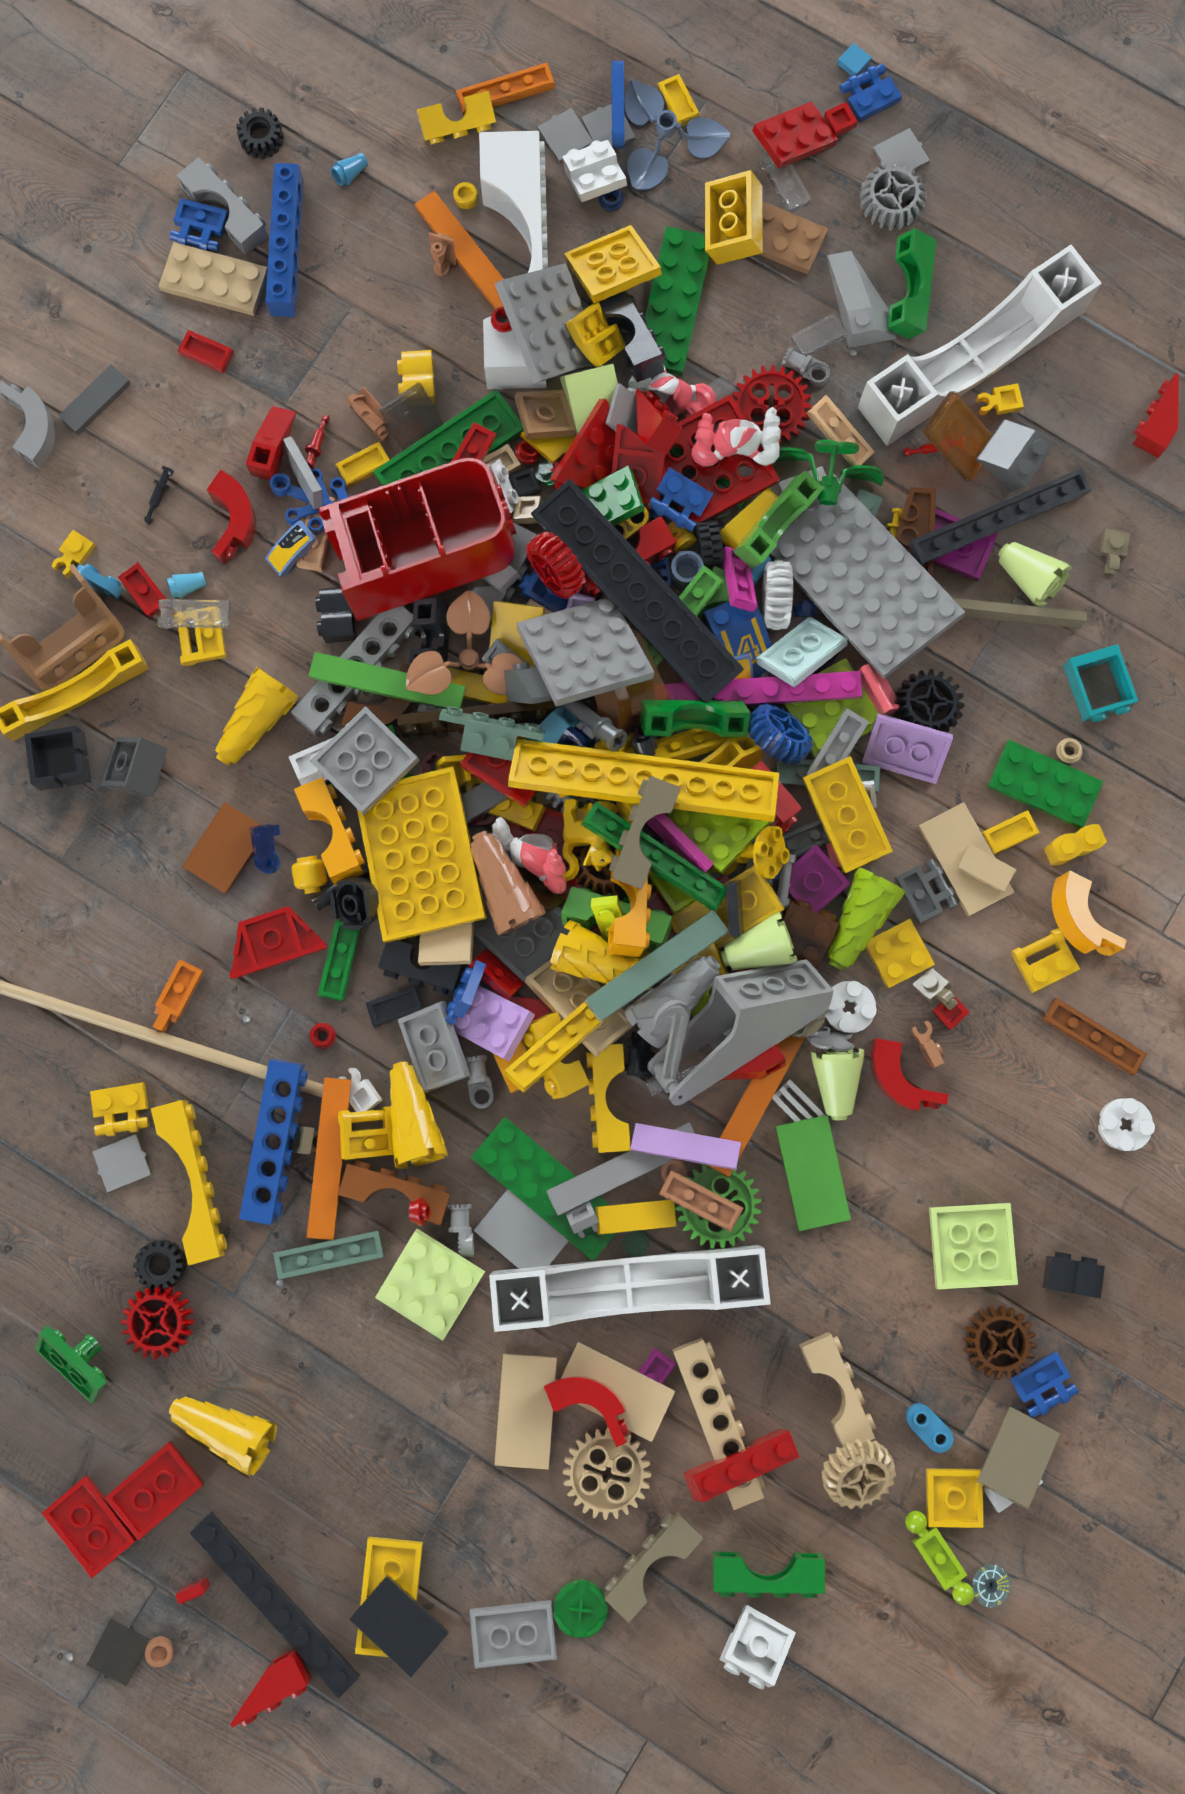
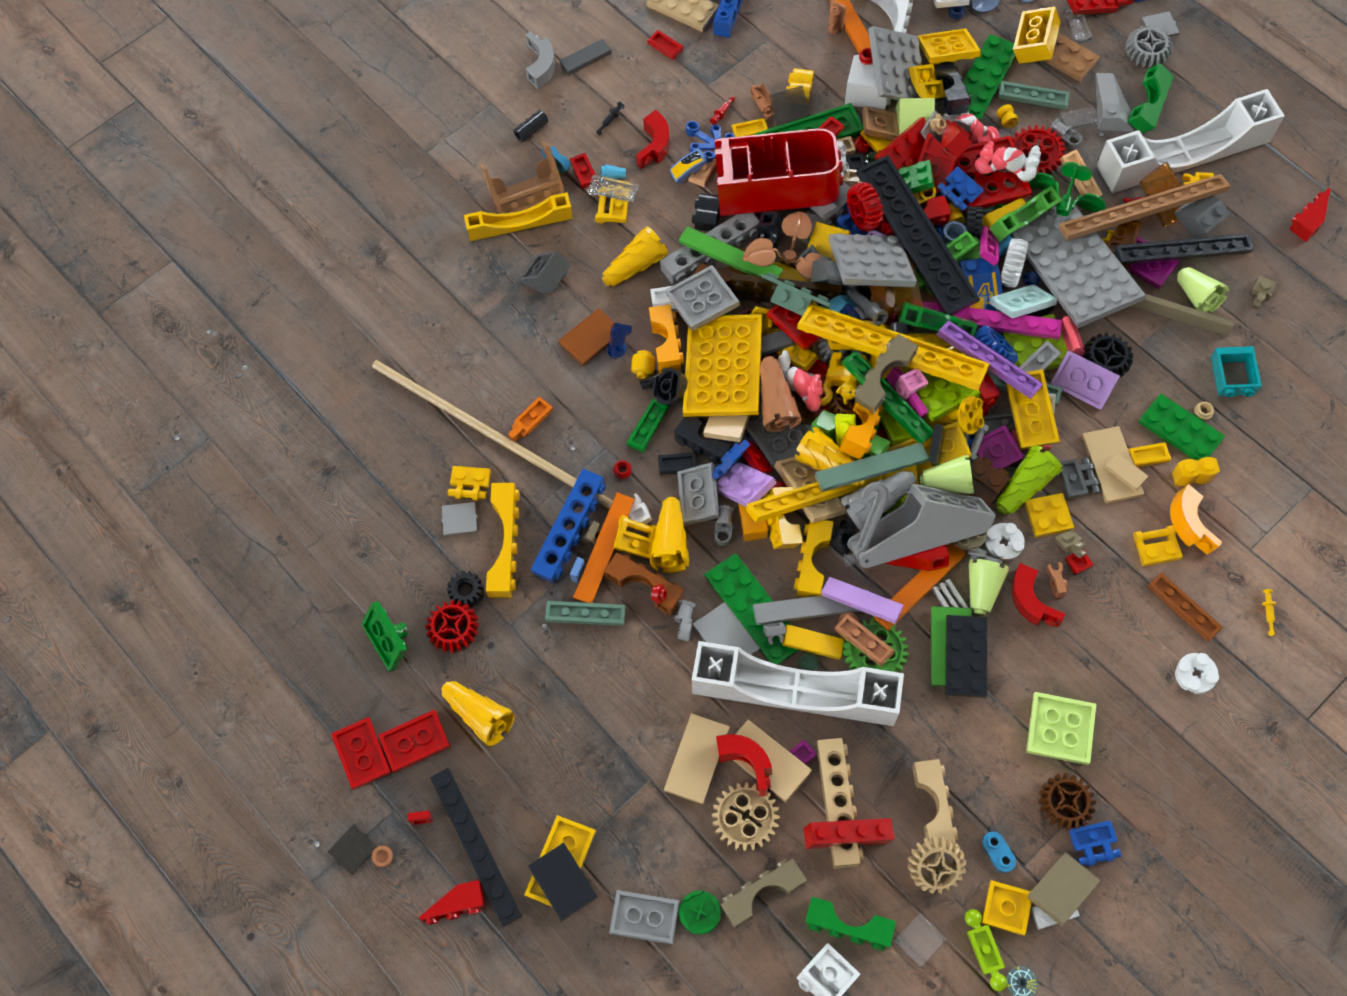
camera: 20 degrees right, 15 degrees down
(46, 535) = (530, 126): none -> black axle
(57, 758) = (497, 254): black piece -> none
(74, 550) = (546, 135): yellow plate -> none
(267, 447) = (691, 103): red slope -> none
(272, 941) = (605, 400): red wing -> none
(302, 472) = (708, 122): light grey tile -> none
(302, 1198) = (577, 570): none -> medium blue tile
(430, 1284) = (651, 650): yellowish green plate -> none
(627, 404) = (937, 124): none -> tan plate
(681, 831) = (910, 383): none -> bright pink bracket
(719, 358) = (1007, 115): none -> yellow wheel
(748, 314) = (1034, 95): none -> sand green plate
(772, 759) = (997, 364): none -> medium lavender plate
(835, 1184) = (966, 656): none -> black plate
(857, 1565) = (920, 940): none -> clear piece
(936, 469) = (1144, 207): none -> medium nougat plate
(1073, 1276) = (1134, 769): black brick -> none

